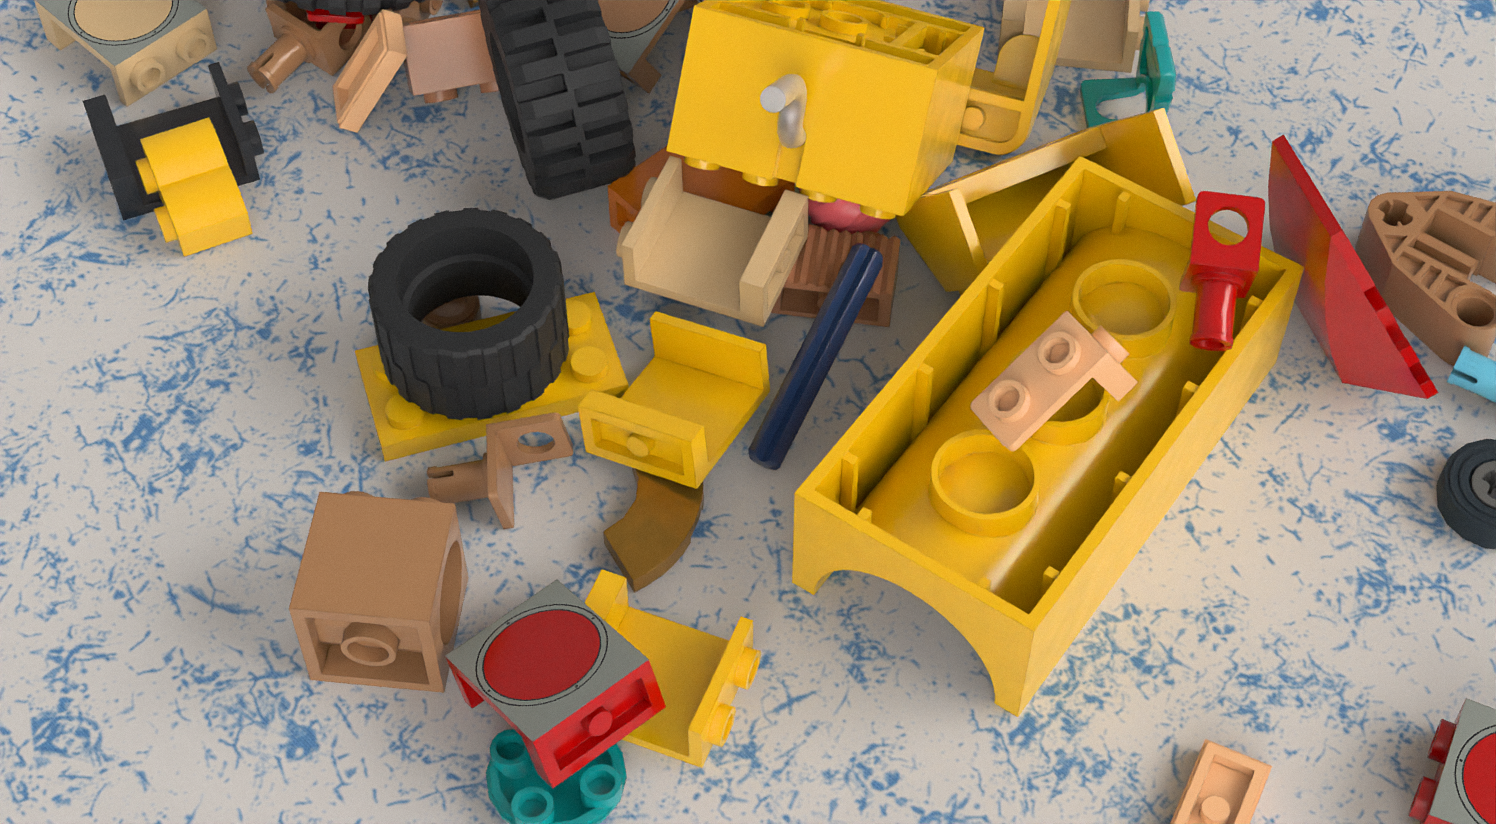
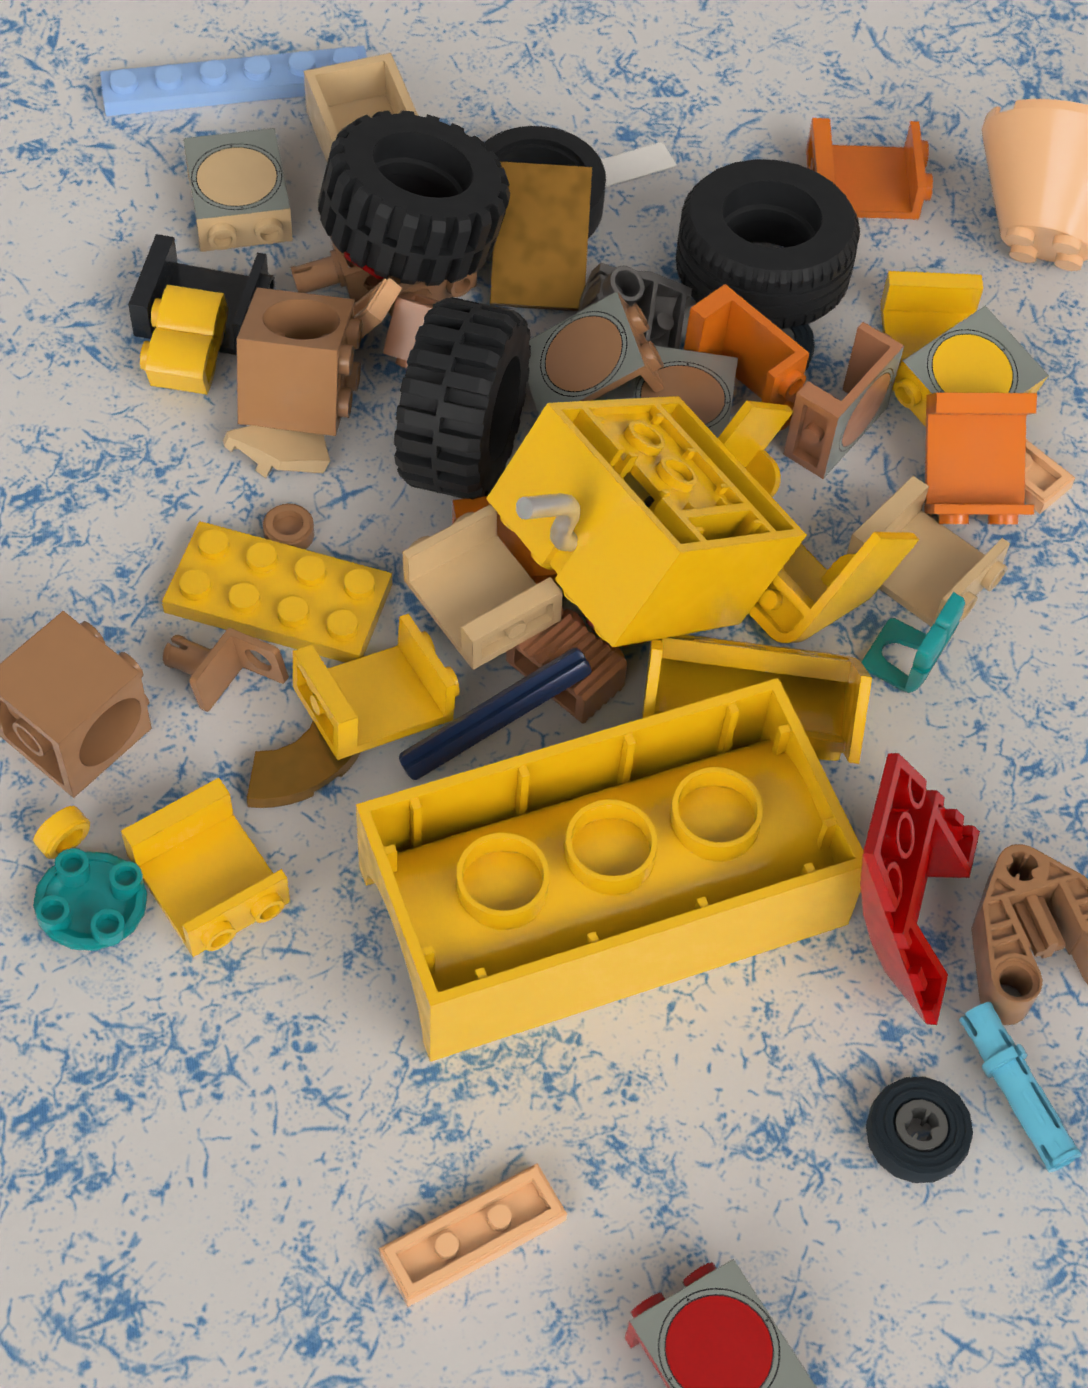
camera: 30 degrees right, 5 degrees up
(345, 139) = (297, 361): none -> medium nougat brick
(367, 235) = (280, 449): none -> tan slope
(459, 258) = (262, 492): black tyre -> none
(471, 728) = (62, 831): none -> yellow tile
(558, 680) = (126, 837): red panel -> none
(1048, 377) = (595, 827): light nougat bracket -> none
(1221, 271) = (777, 830): red bracket -> none

